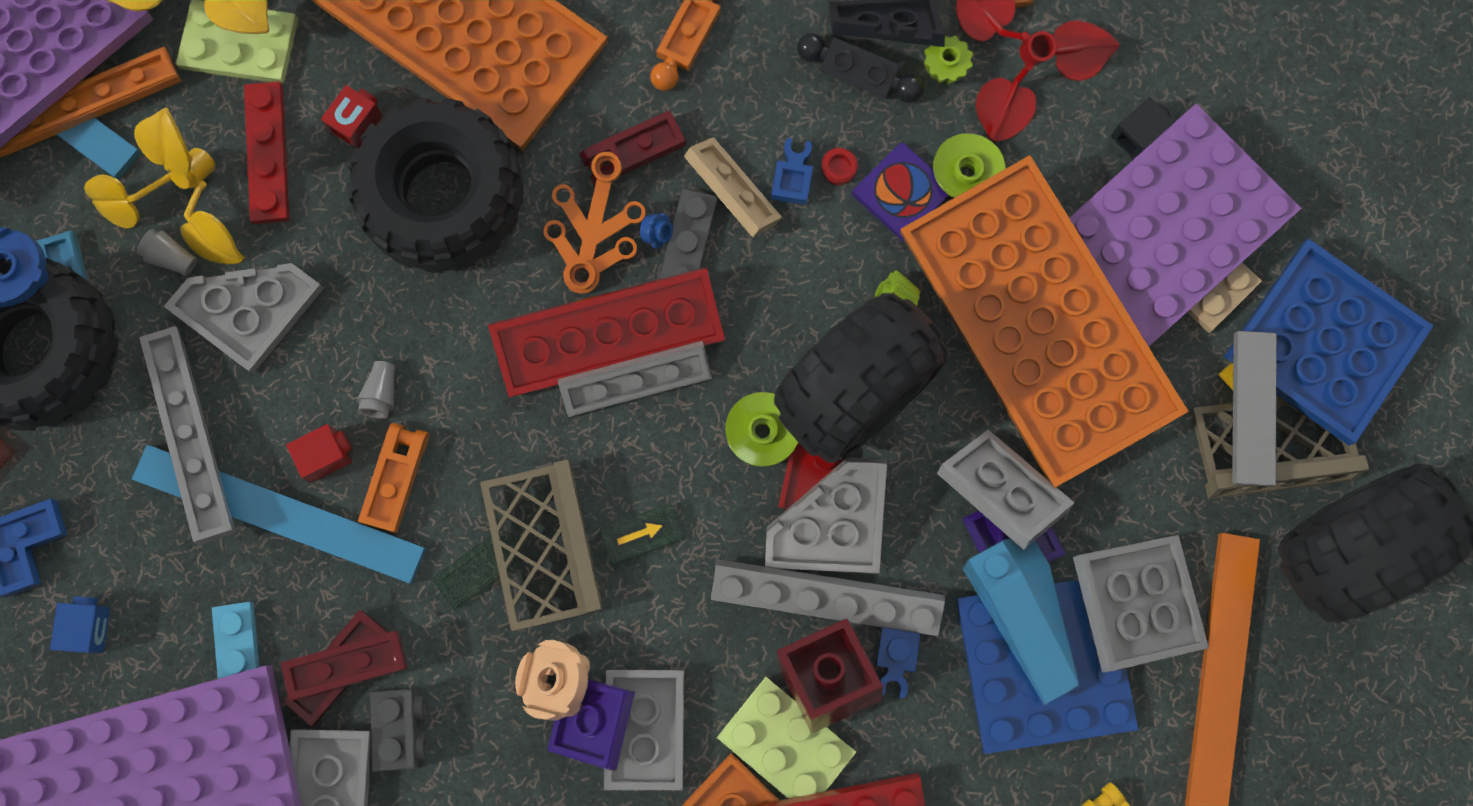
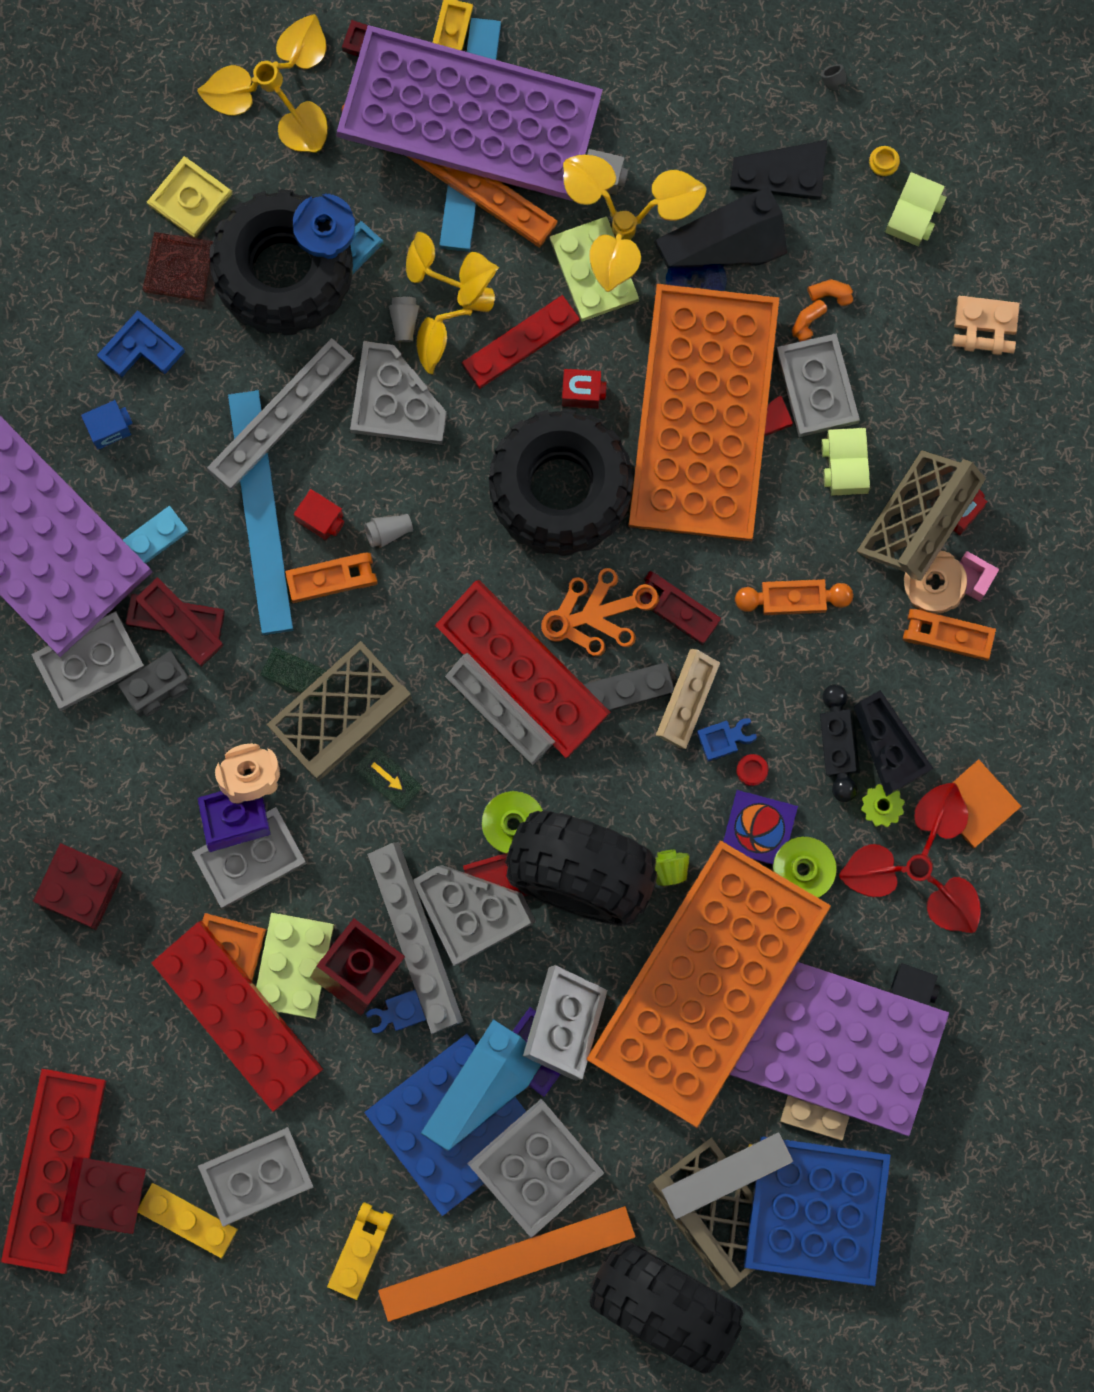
camera: 60 degrees right, 0 degrees up
(656, 230) = (621, 660): blue plate -> none

